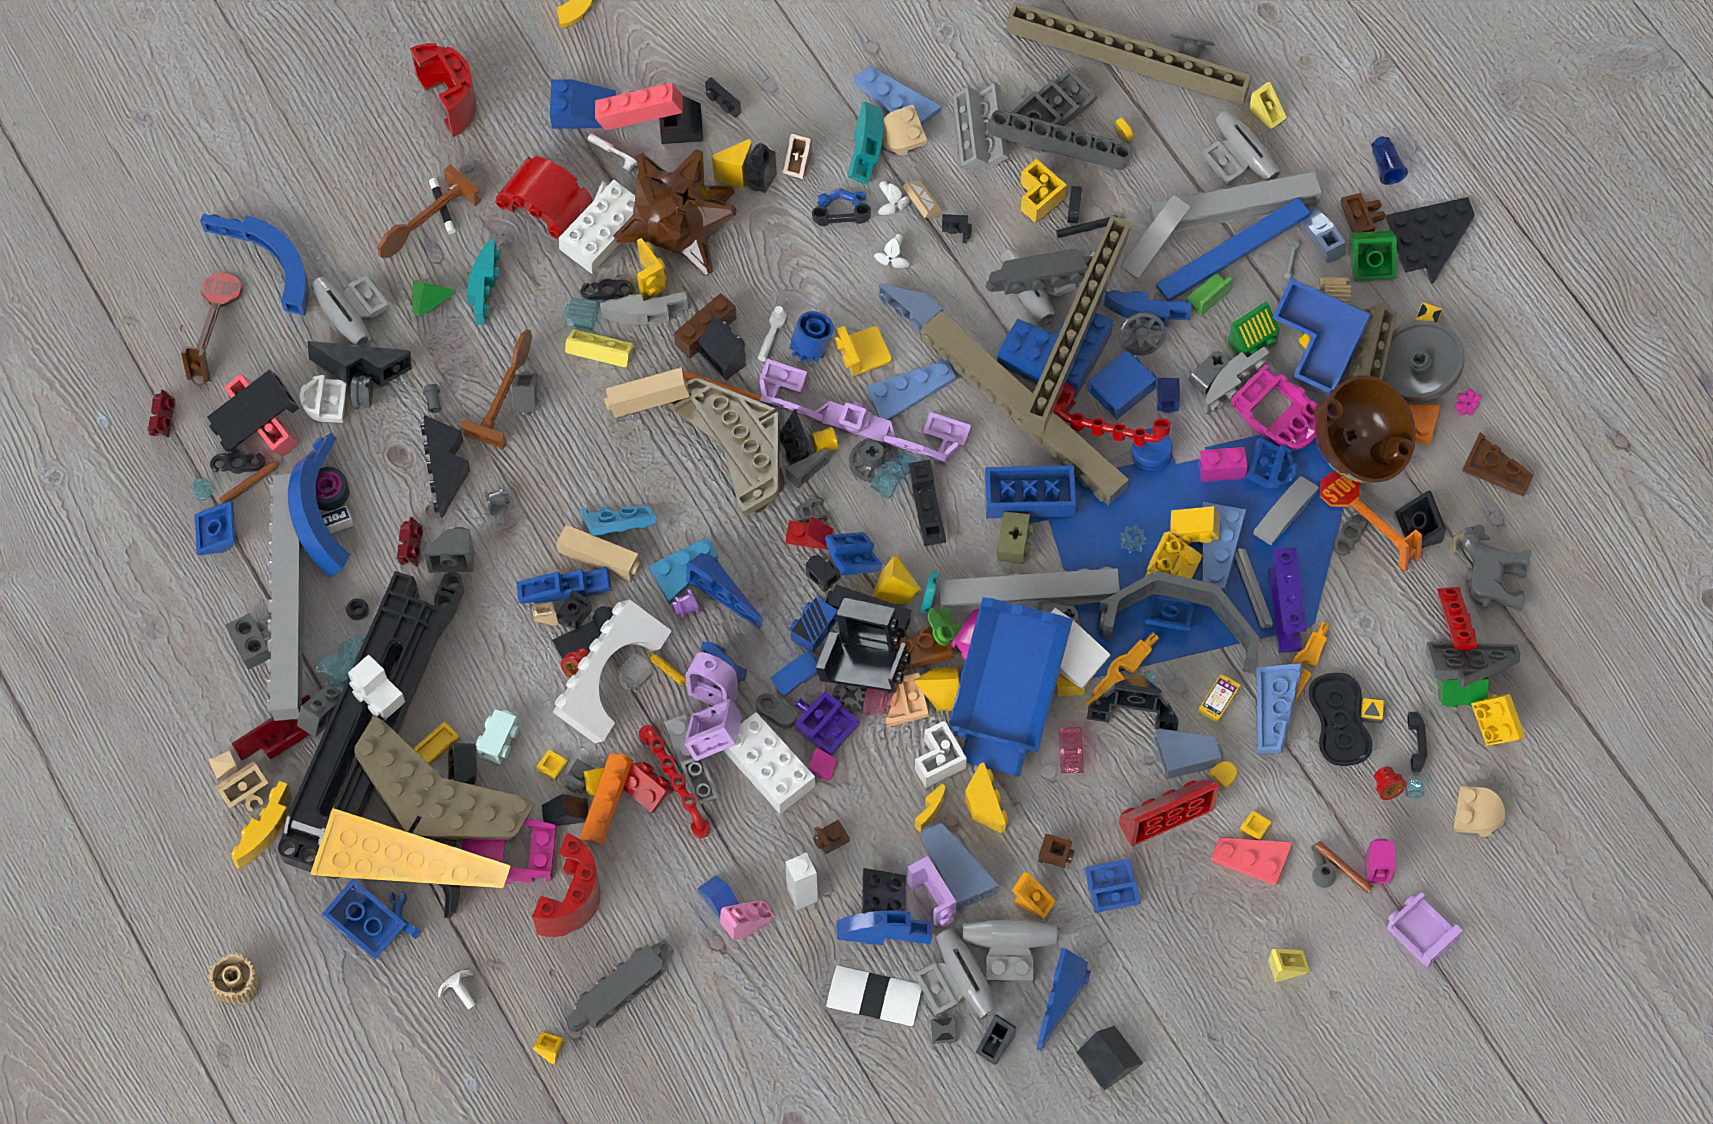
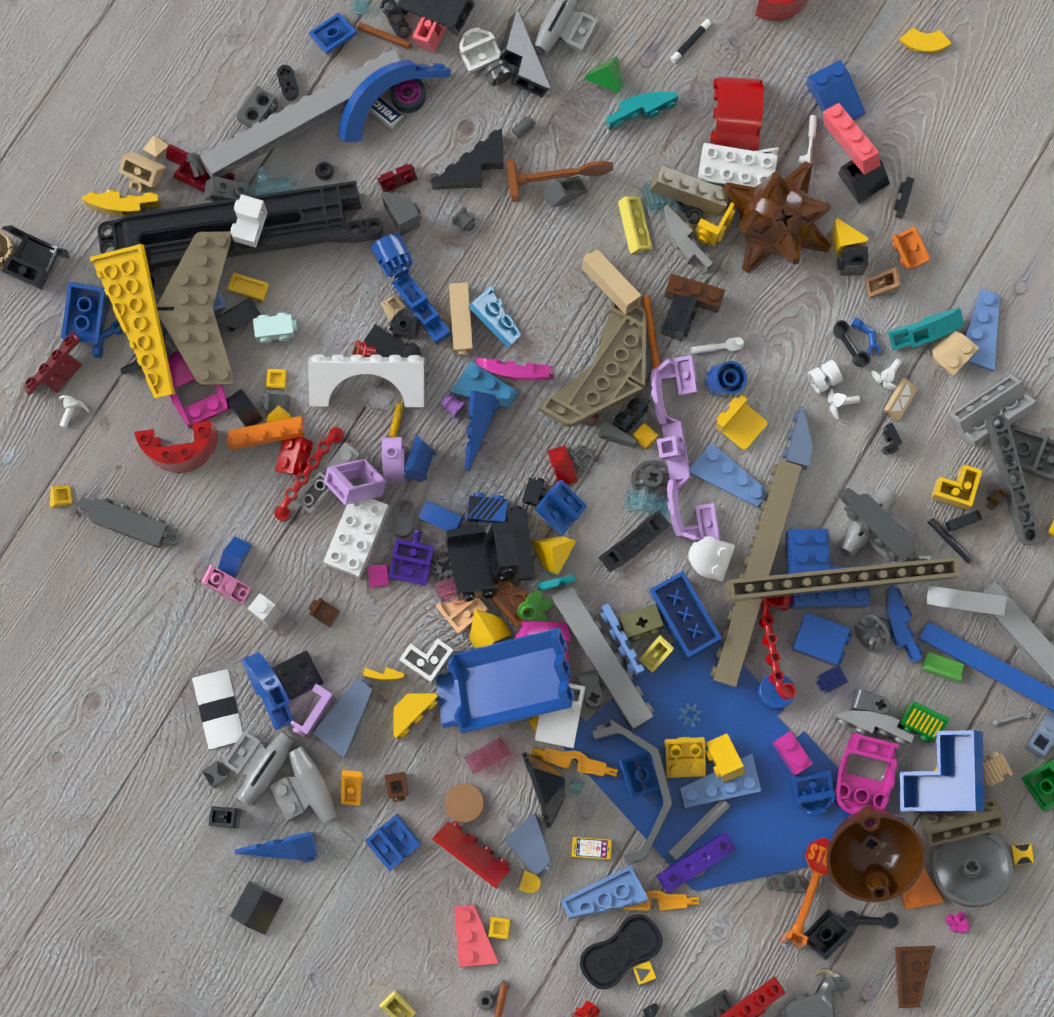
camera: 60 degrees right, 15 degrees up
(238, 599) = (283, 84): none -> black beam
(269, 944) = (32, 259): none -> black piece
(271, 724) = (195, 162): none -> dark grey pin
(397, 235) = (642, 24): dark orange piece -> none
(405, 977) = (57, 369): none -> dark red bracket
(492, 582) = (392, 255): none -> blue gear
(598, 275) = (689, 190): none -> dark tan brick
(690, 520) = (517, 372): none -> dark pink slope
(777, 115) = (911, 248): none -> orange bracket
(860, 252) = (827, 375): none -> white wheel
(984, 441) = (711, 557): none -> white slope
(1024, 562) = (616, 634): none -> medium blue wing
(1053, 537) = (656, 654): none -> light yellow slope
(1067, 164) = (995, 498): none -> dark brown plate
(1107, 797) = (464, 803): none -> medium nougat tile
(1286, 510) = (779, 823): light grey slope -> none
(1434, 464) = (888, 921): none -> black bar

